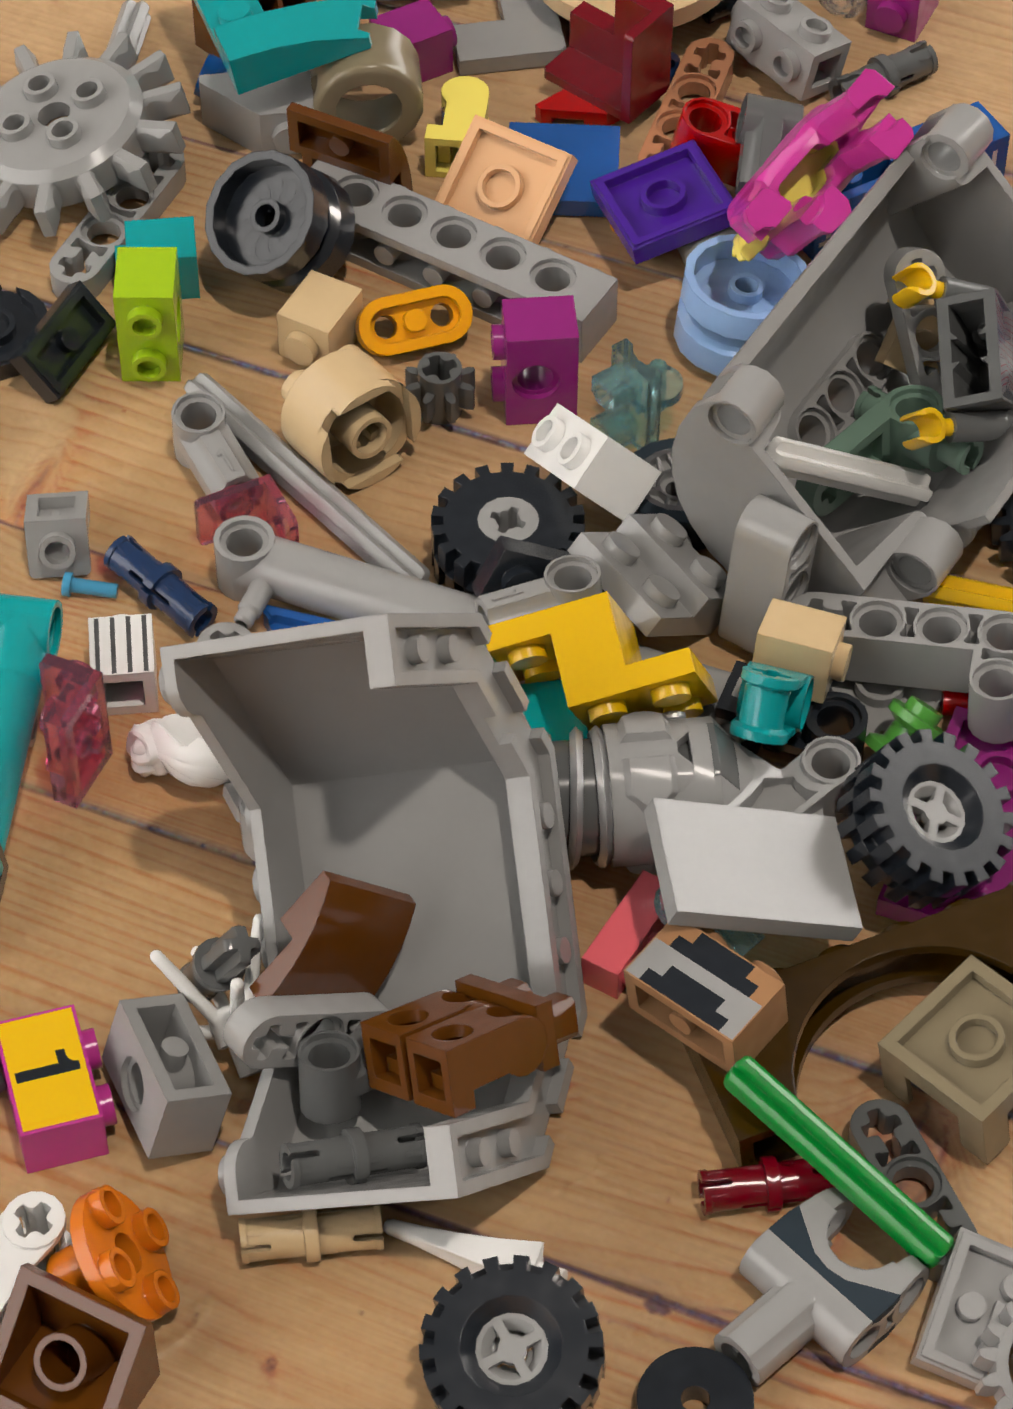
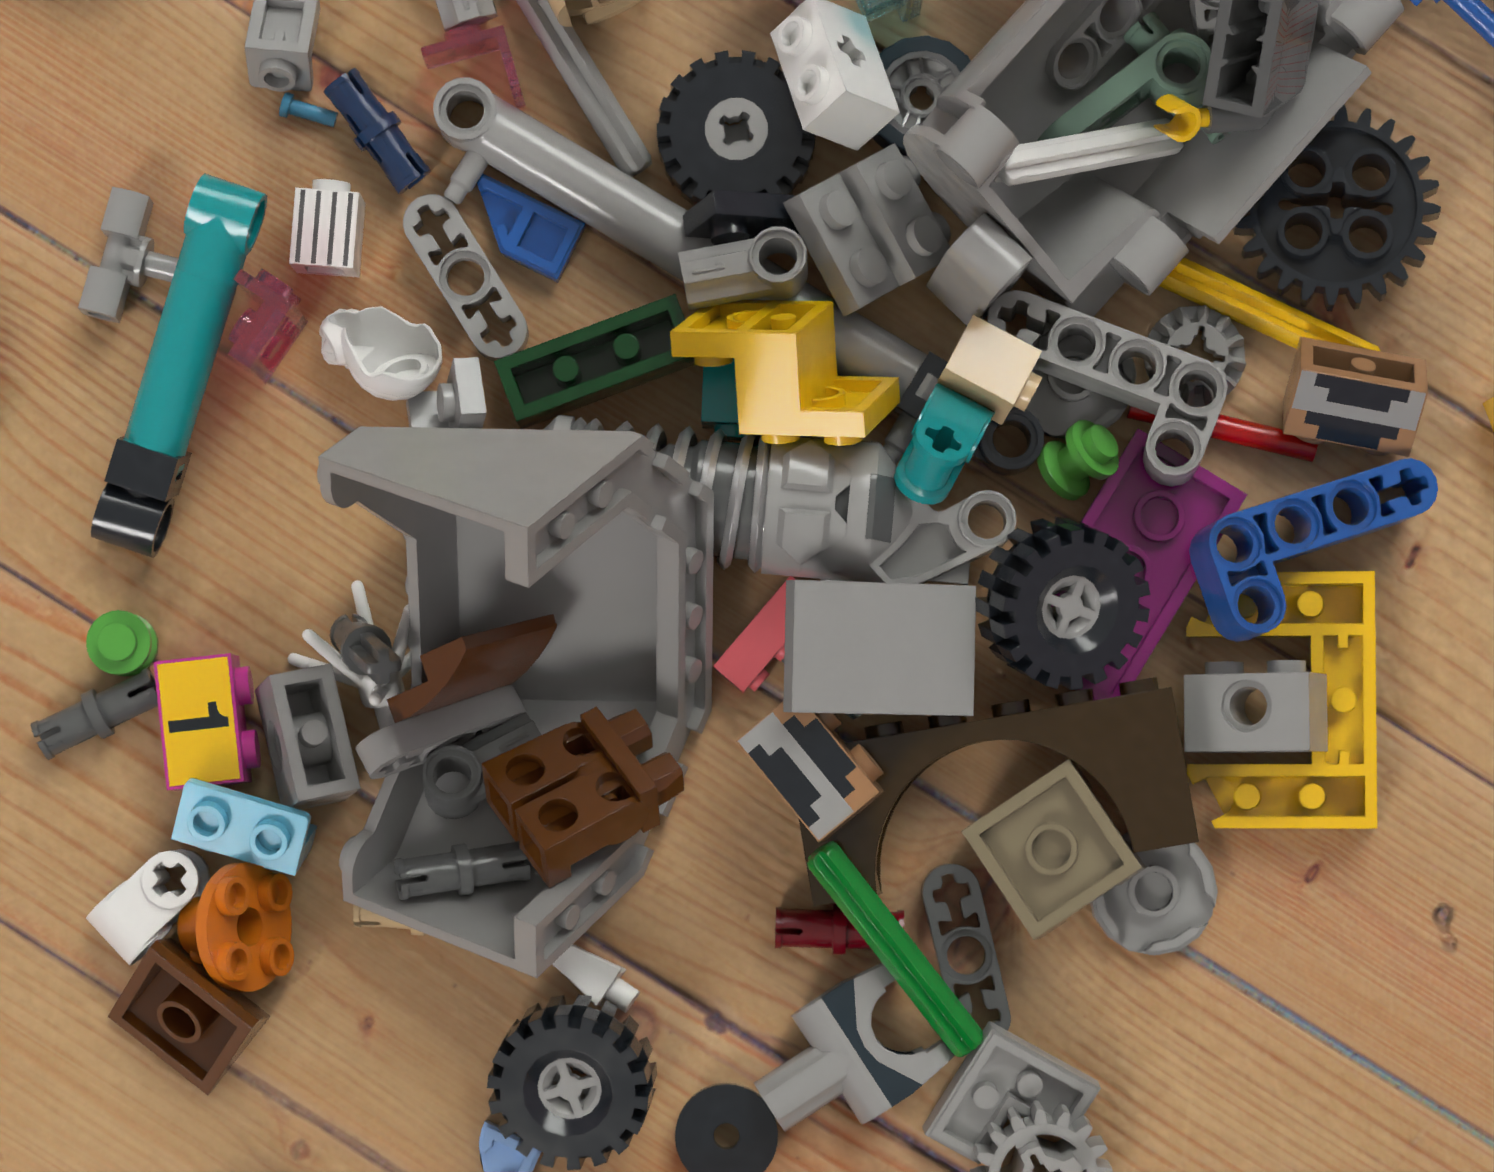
camera: 10 degrees right, 35 degrees up
(95, 1149) = (243, 826): none -> medium azure bracket

